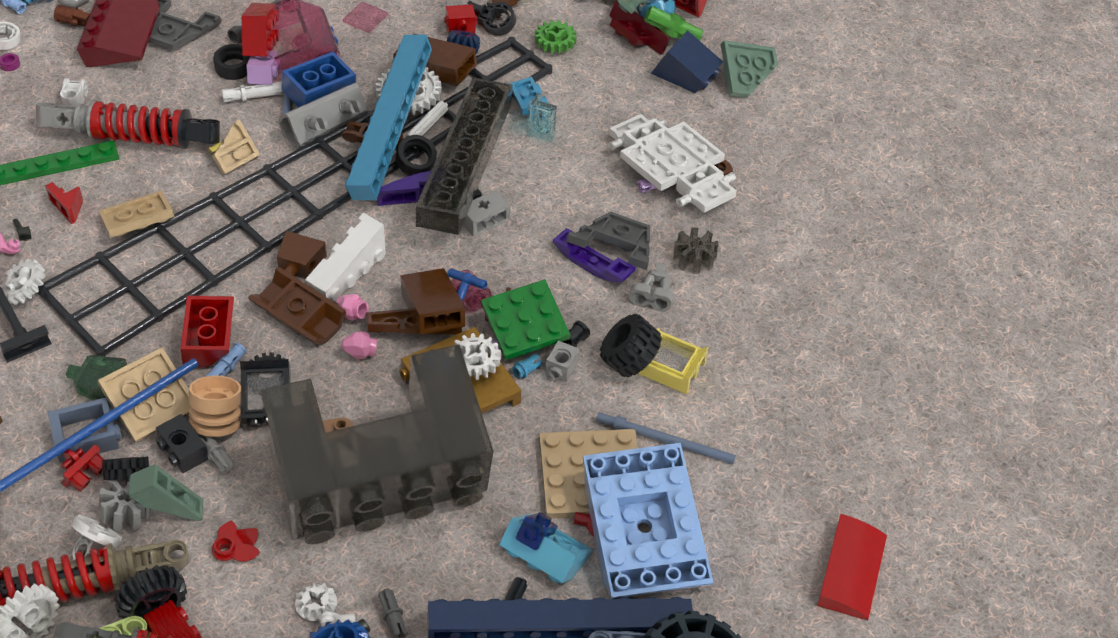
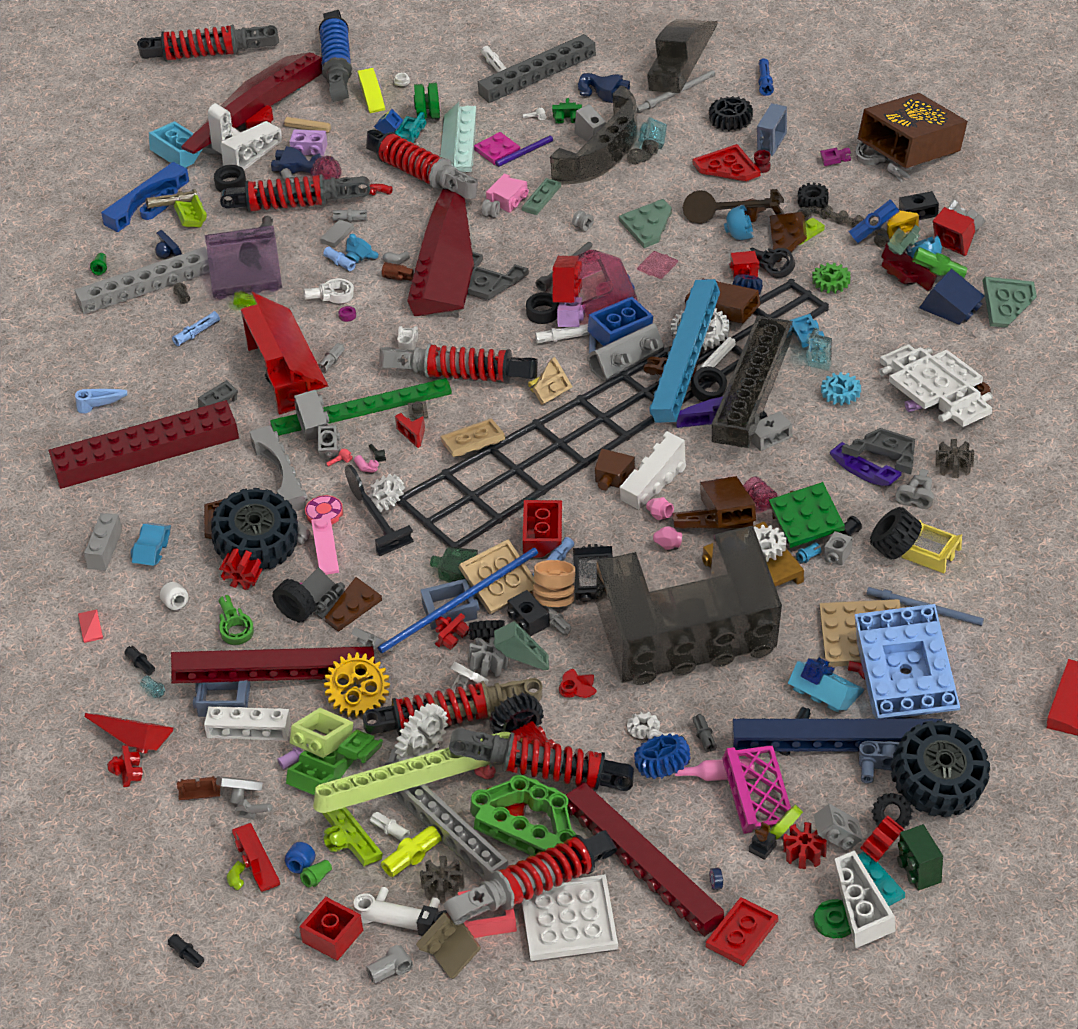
camera: 10 degrees right, 5 degrees down
(76, 178) = (417, 410): none -> clear smoke plate
(300, 307) = (616, 509): reddish brown piece -> none
(466, 280) = (756, 484): blue piece -> none
(565, 164) = (840, 388): none -> medium azure gear

